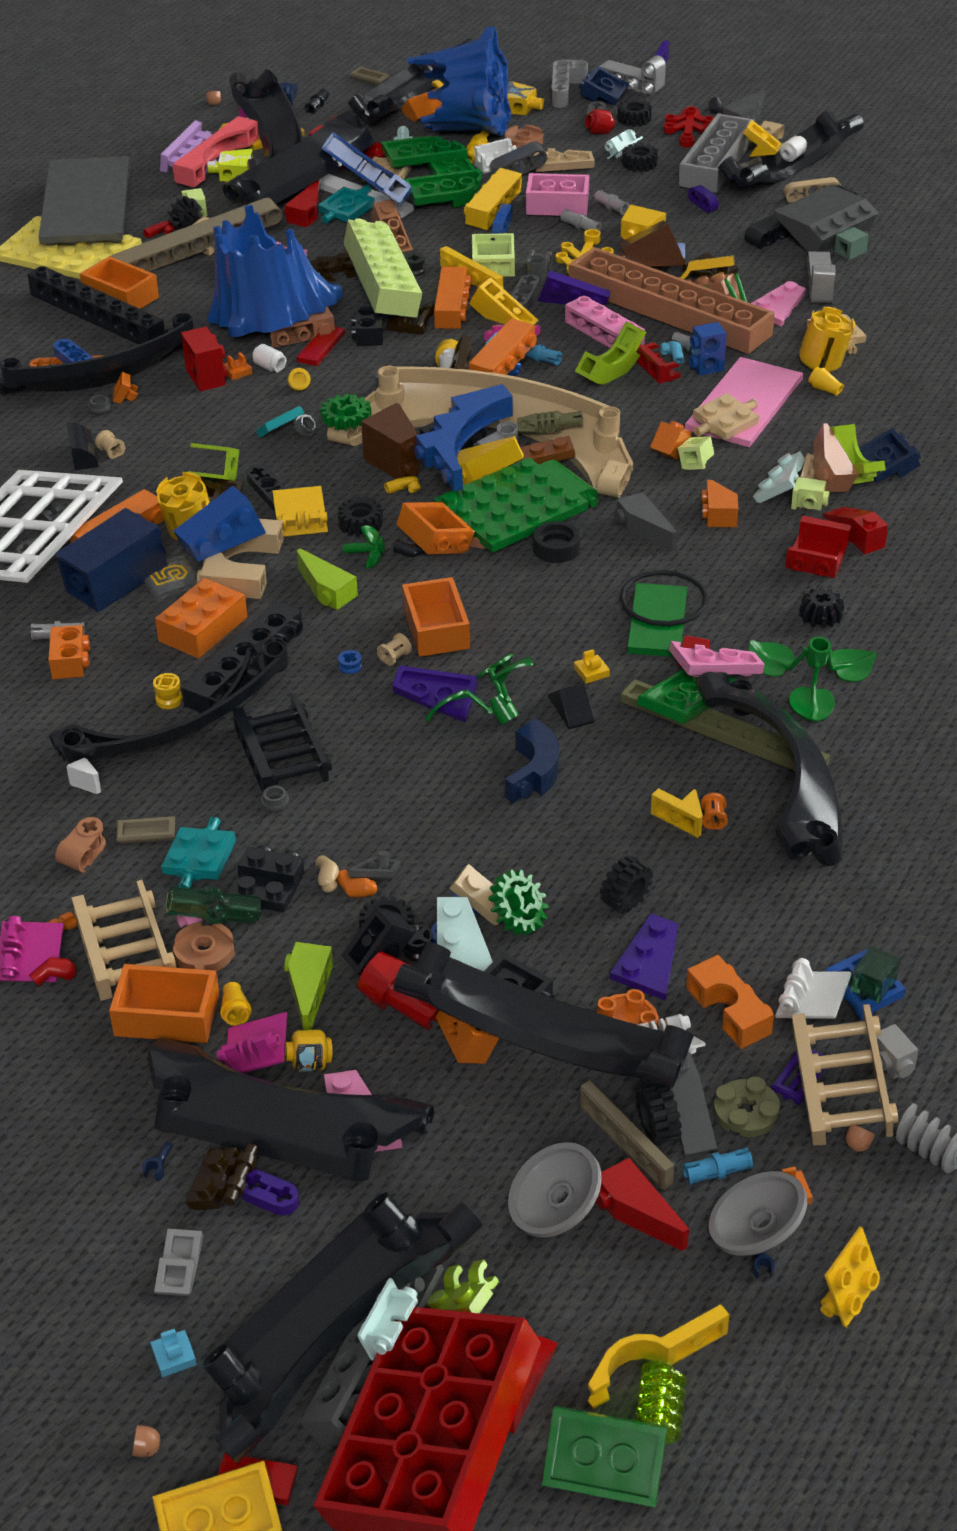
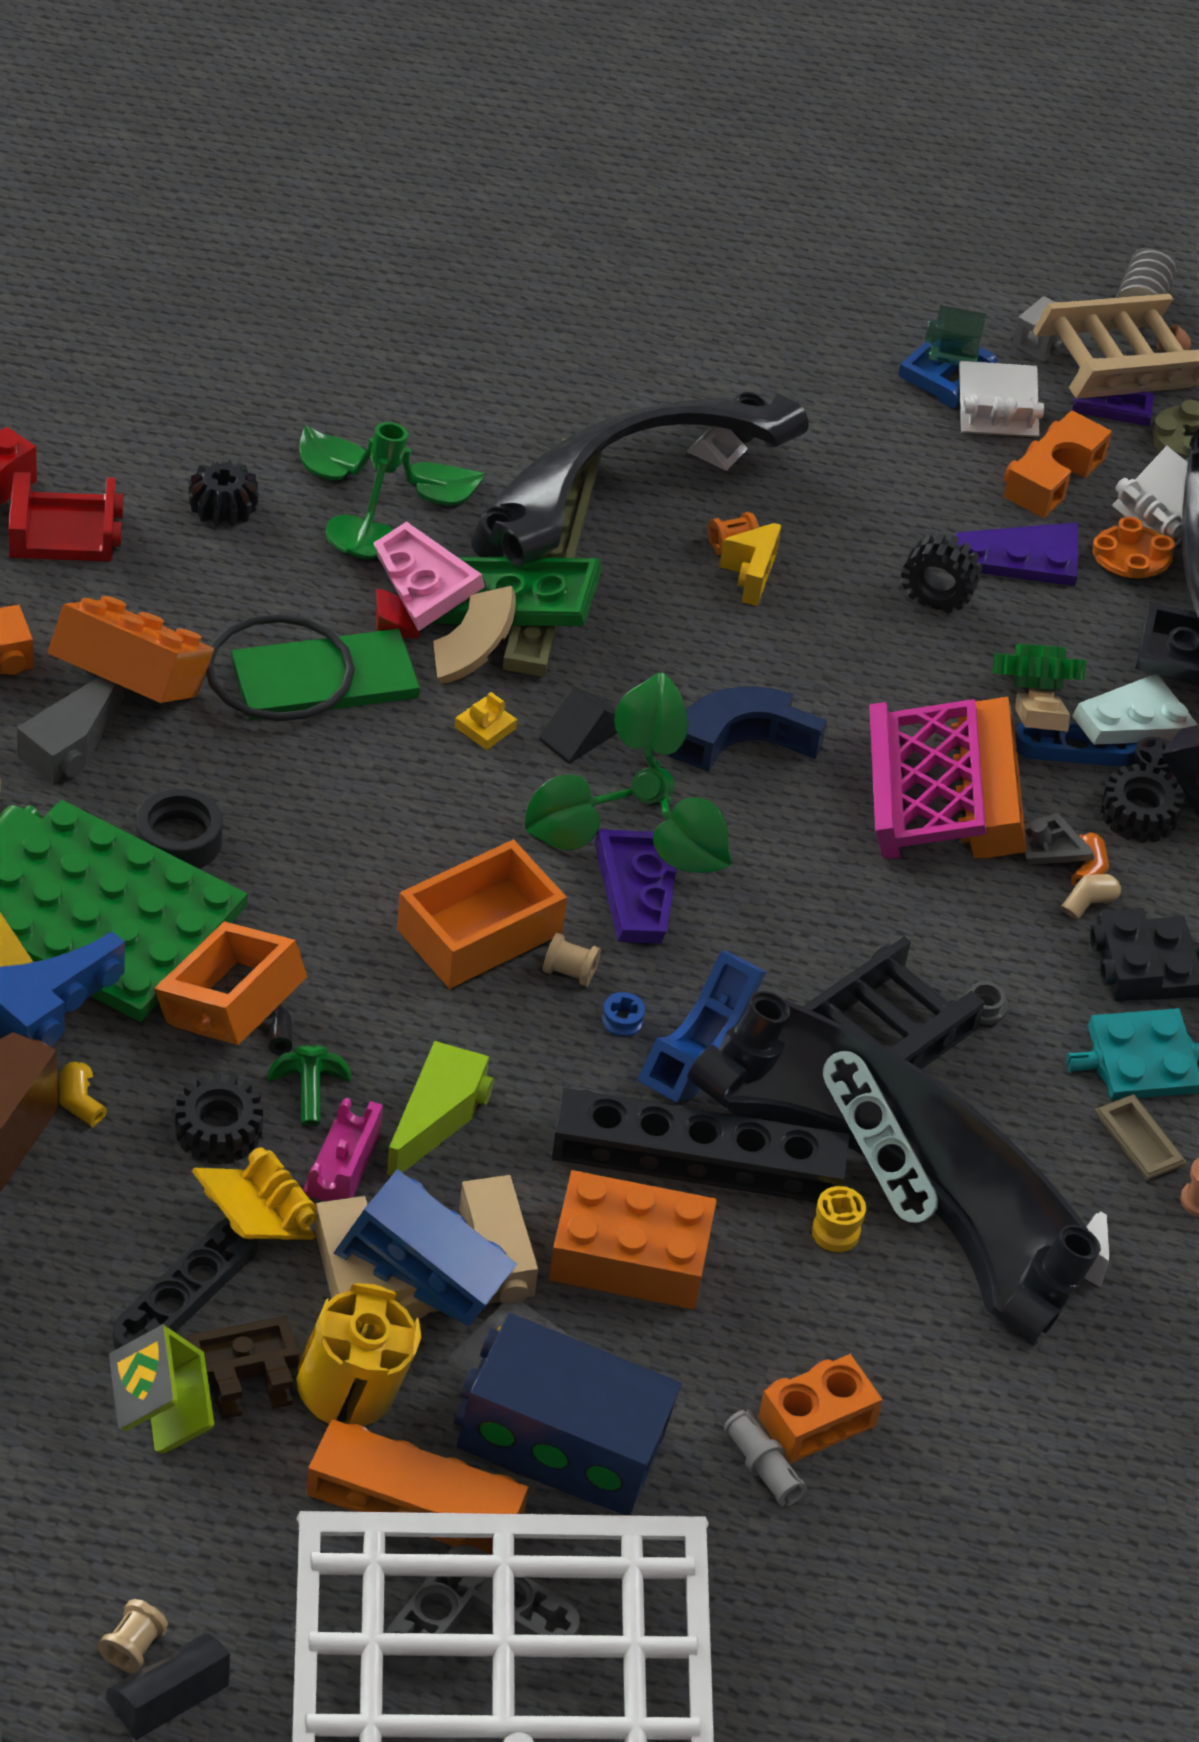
camera: 120 degrees left, 5 degrees up
(196, 705) = (884, 1134): none -> light aqua beam
(306, 673) = (713, 1014): none -> blue arch
(313, 546) = (345, 1153): none -> dark pink hinge
(436, 849) = (1000, 782): none -> orange brick
(463, 809) = (889, 771): none -> dark pink fence
(655, 668) = (477, 636): none -> tan tile
(684, 535) = (131, 649): none -> orange piece

